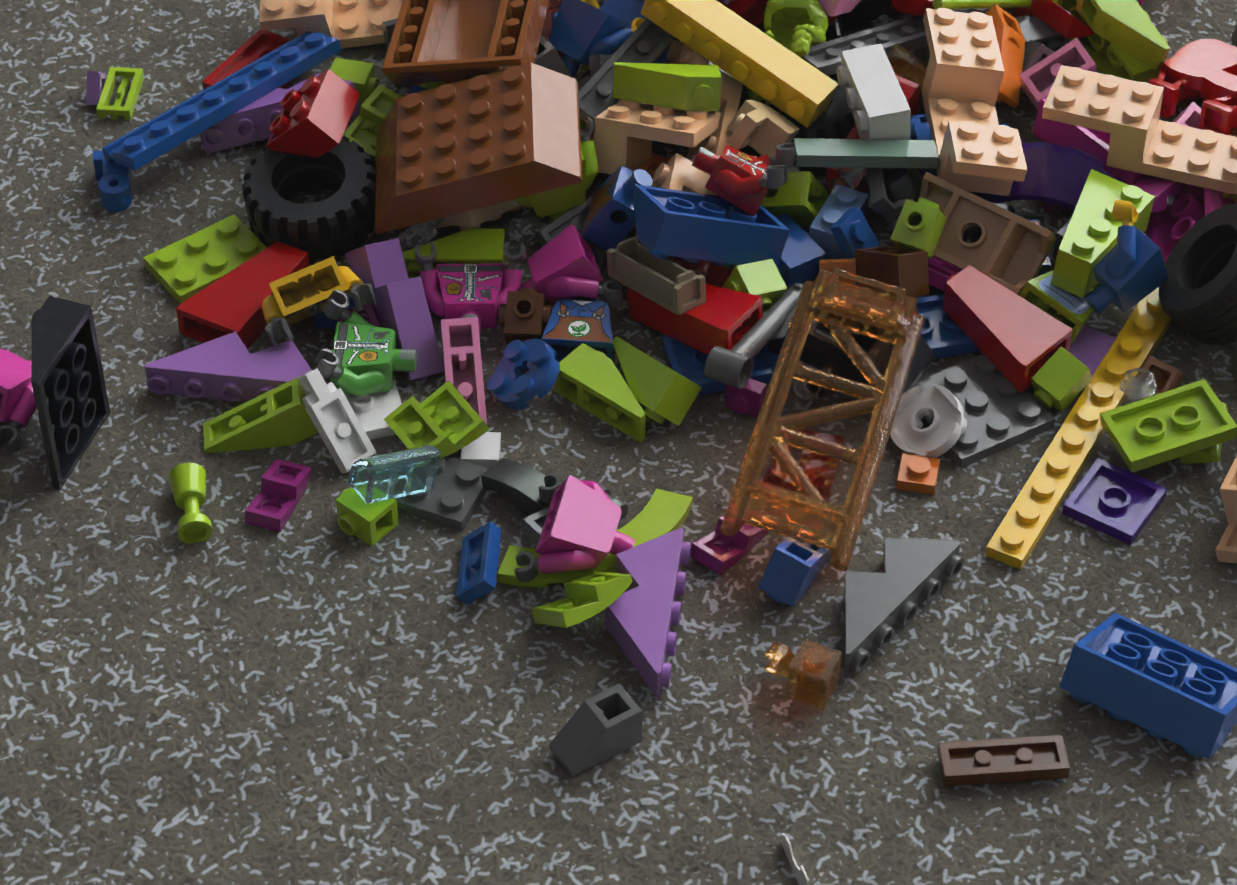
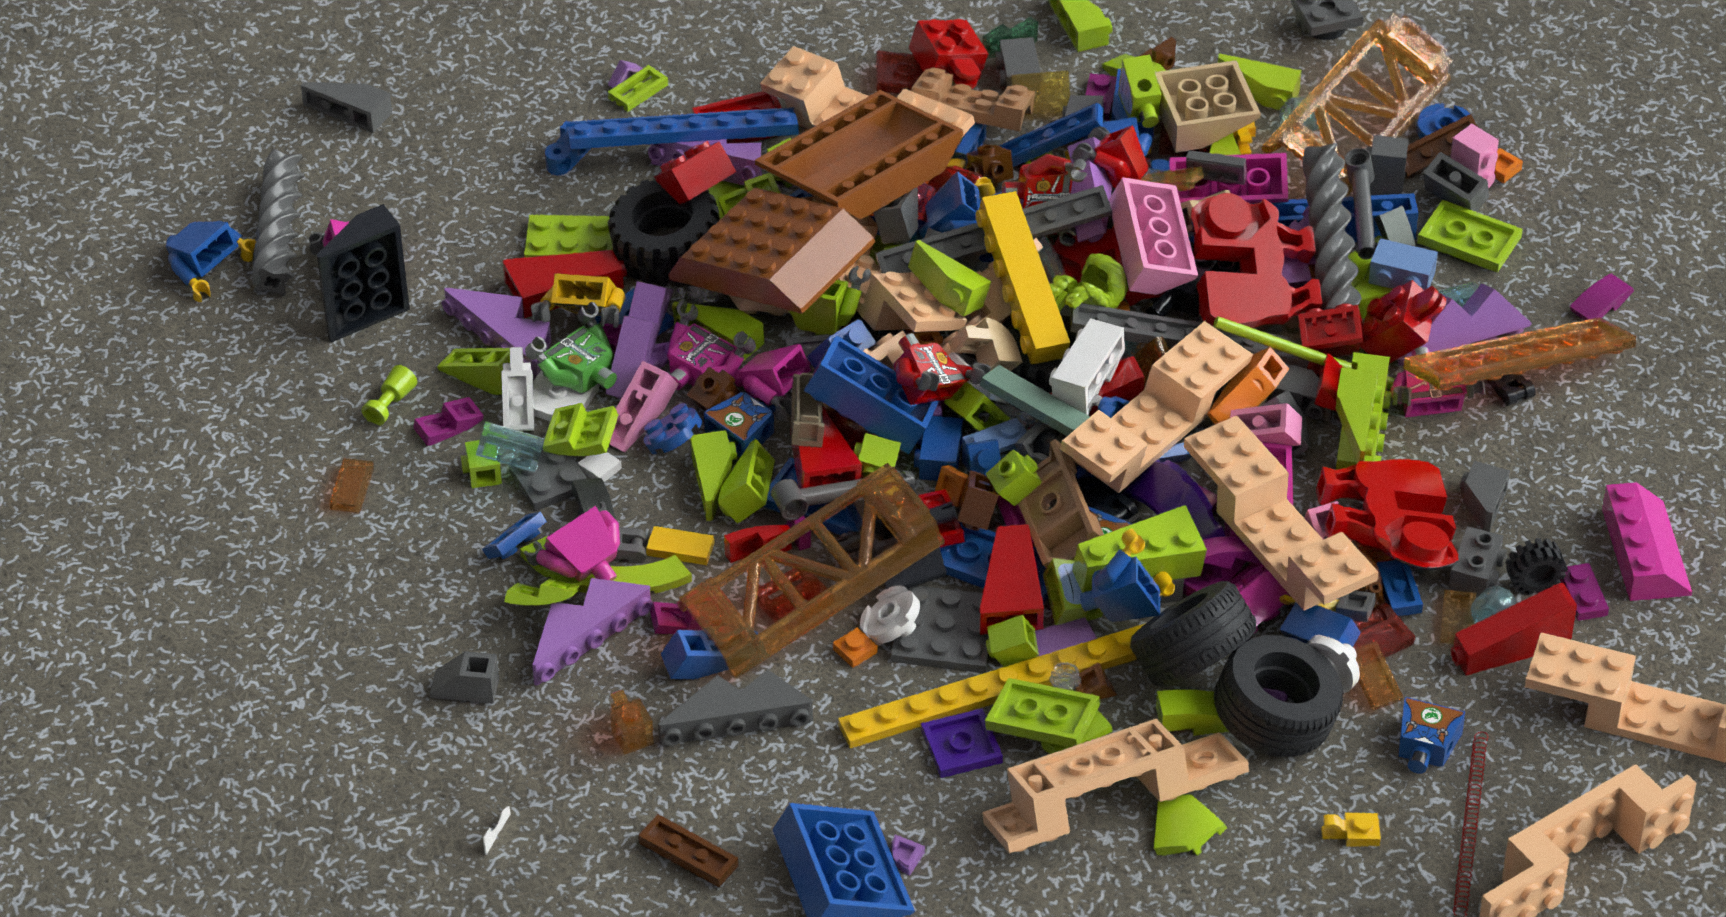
camera: 40 degrees right, 0 degrees up
(245, 615) = (351, 485): none -> clear orange tile
(643, 477) = (686, 545): none -> yellow tile
(724, 427) = (746, 541): none -> red slope
(1190, 631) = (906, 853): none -> medium lavender tile

